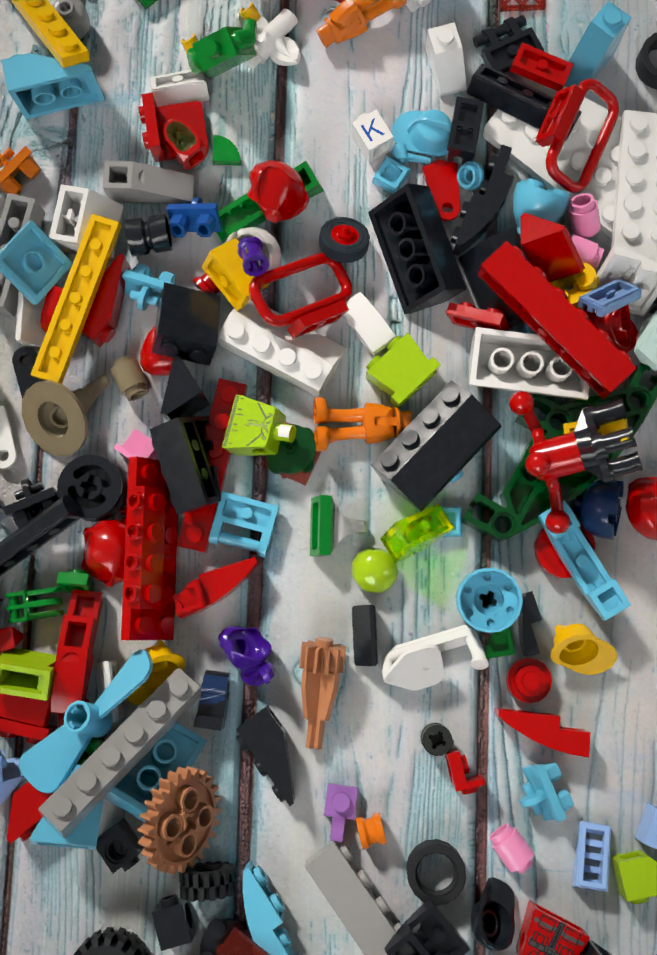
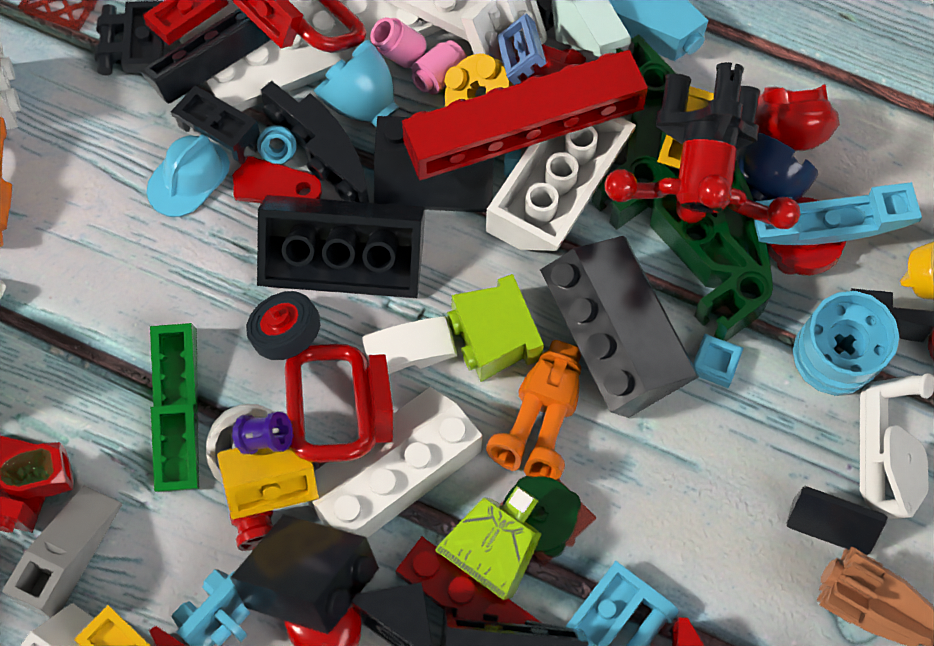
camera: 75 degrees left, 15 degrees down
(148, 235) = (141, 575): black wheel -> none
(194, 217) = (149, 507): blue hips -> none
(225, 152) = (73, 430): green tile -> none
(277, 190) = (178, 371): red helmet -> none
(330, 526) = (669, 506): green piece -> none
(372, 135) = (159, 235): white brick -> none
(374, 570) = (748, 475): lime hair -> none
(391, 175) = (223, 237): medium azure tile -> none
(402, 156) = (204, 215): medium azure hand -> none
(416, 532) = (723, 398): clear neon green slope -> none
(446, 59) = (108, 109): white slope -> none
(472, 317) = (461, 219): red plate -> none
(500, 644) = (904, 361): green tile -> none
(549, 247) = (423, 83): red slope -> none

